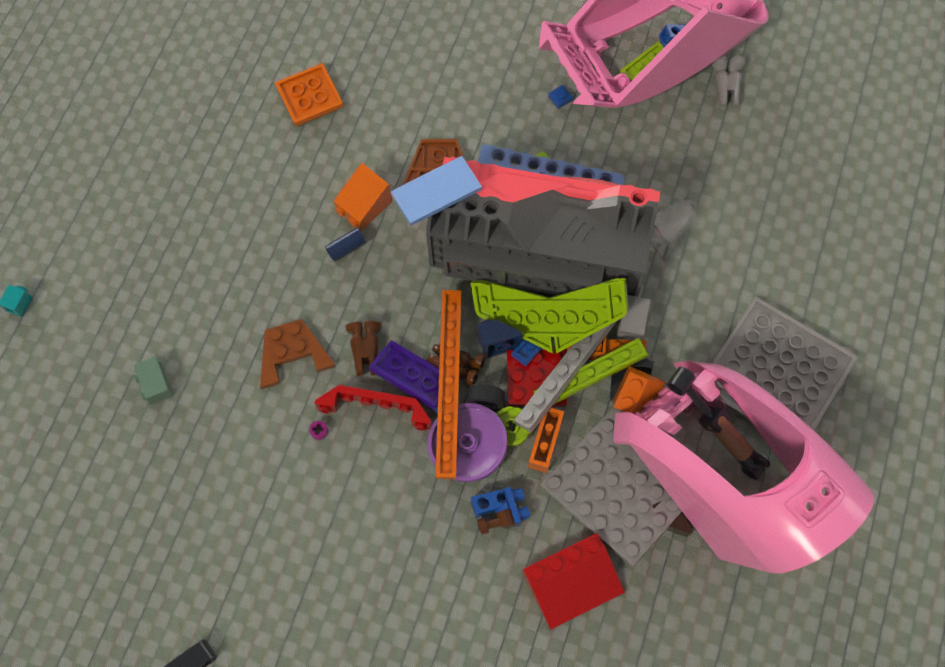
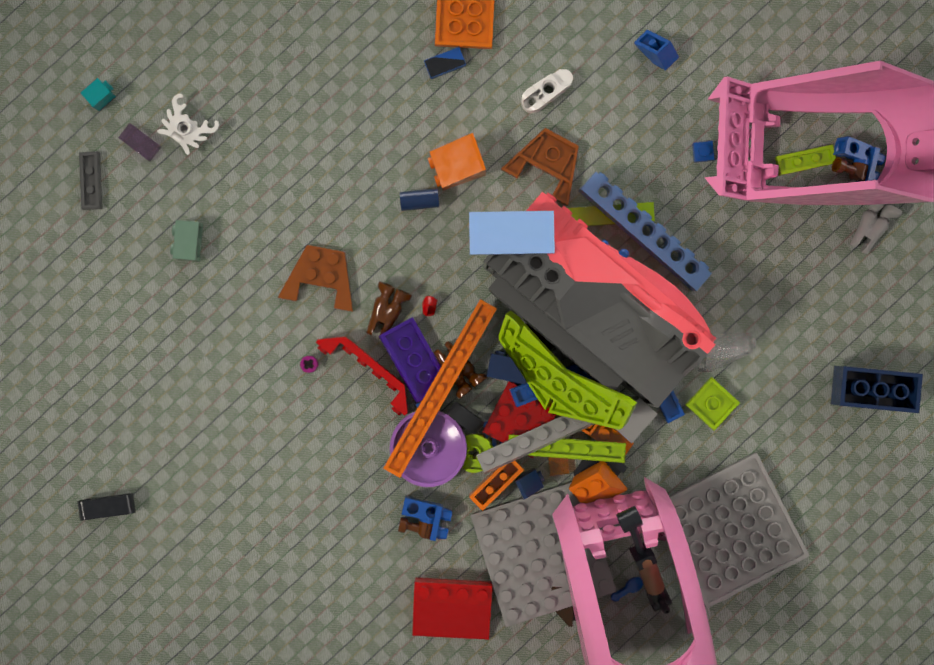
camera: 30 degrees right, 20 degrees up
(39, 377) = (90, 180): none -> dark grey tile
(71, 322) = (139, 142): none -> clear purple tile
(107, 290) = (184, 129): none -> white animal
(310, 134) = (445, 63): none -> black tile
(400, 324) = (429, 305): none -> red piece
(405, 120) = (559, 81): none -> white piece
(478, 42) = (657, 49): none -> blue slope
(575, 425) = (530, 482): none -> dark blue slope
(592, 399) = (558, 466): none -> clear orange tile
(659, 301) = (671, 408): none -> blue tile
(692, 278) = (712, 403): none -> lime plate
(725, 467) = (631, 586): none -> blue piece
(816, 190) = (876, 389): none -> dark blue brick

